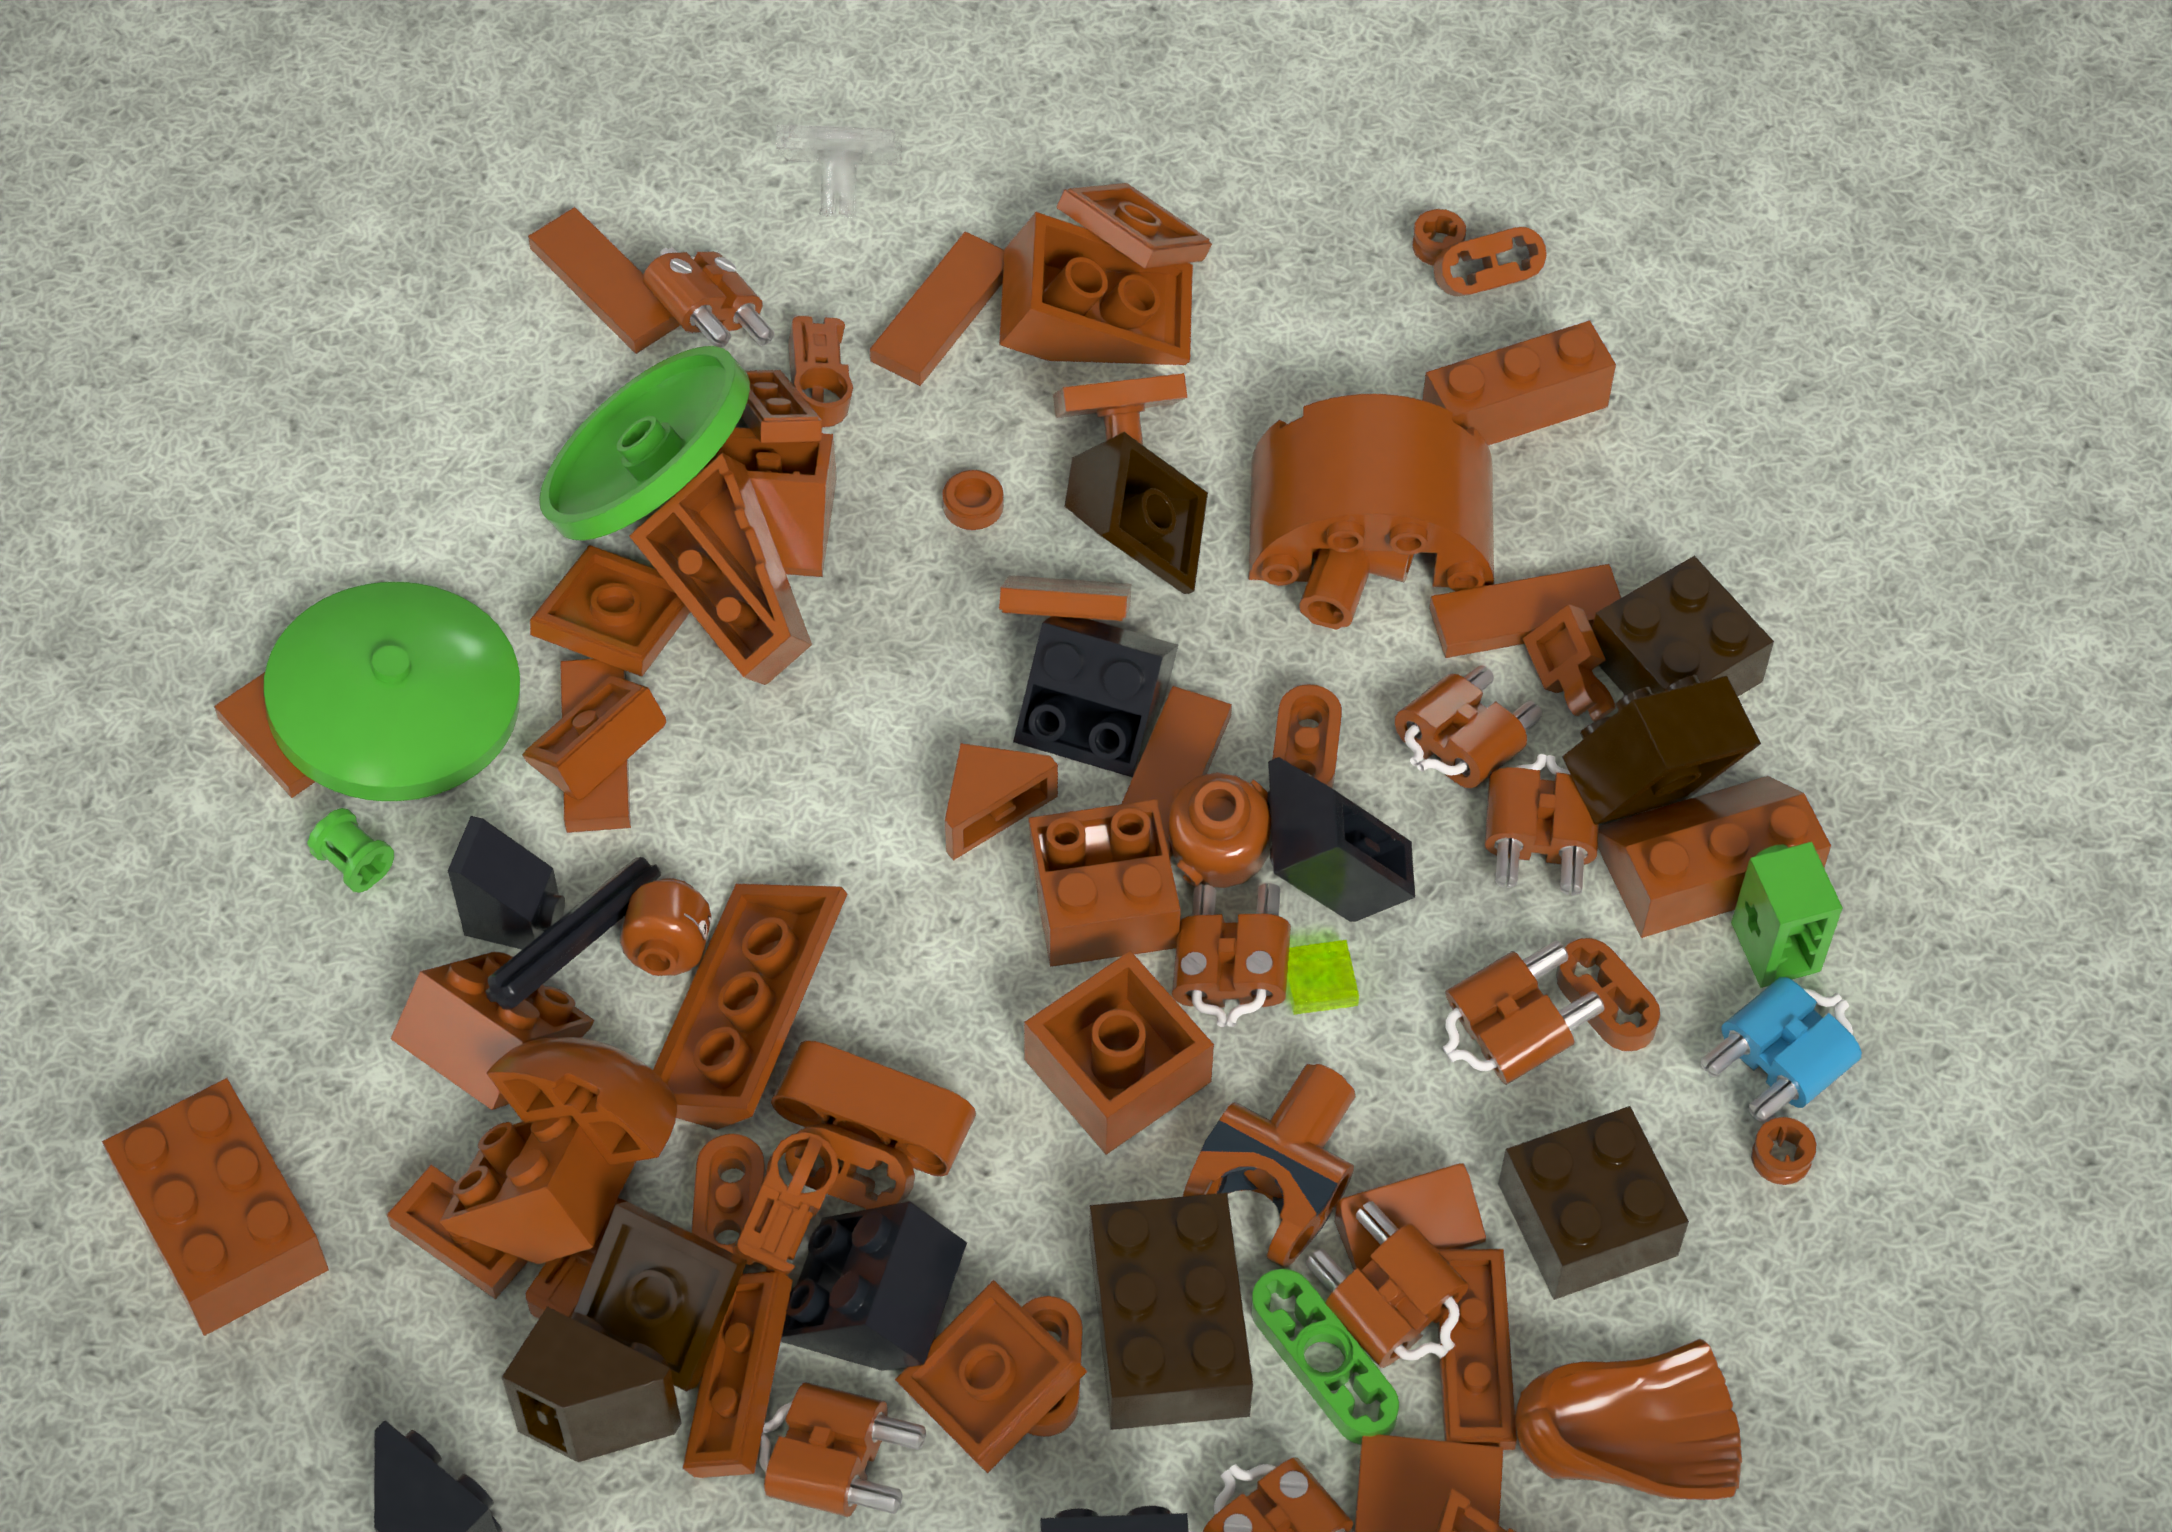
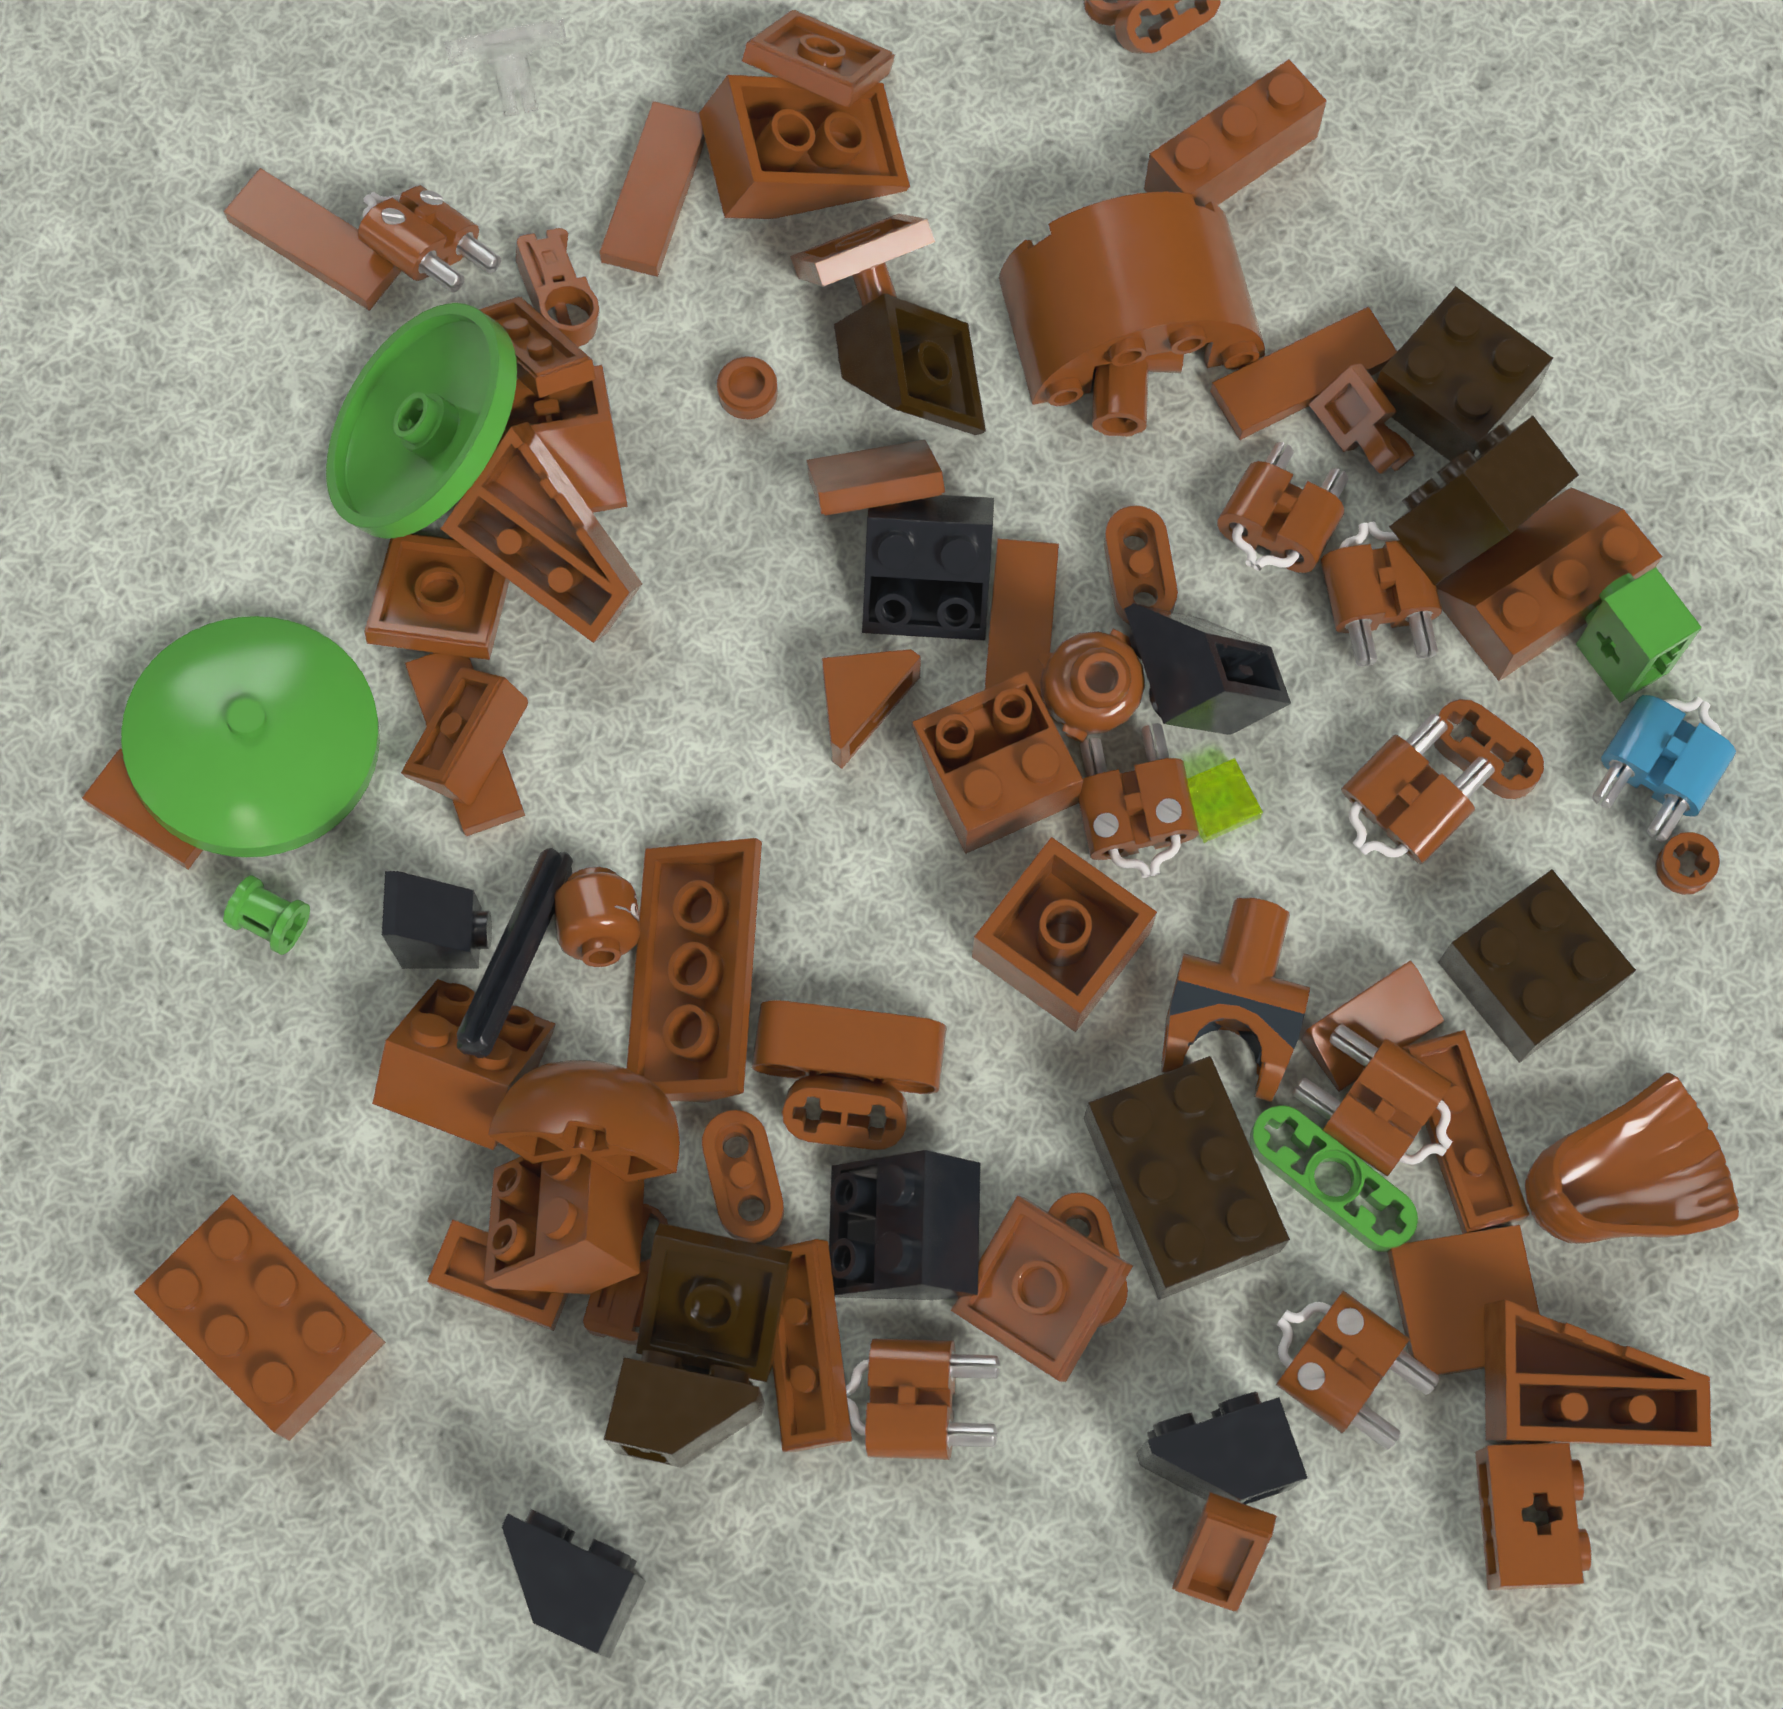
camera: 15 degrees left, 15 degrees up
(782, 1211) = (801, 1186): dark orange piece -> none

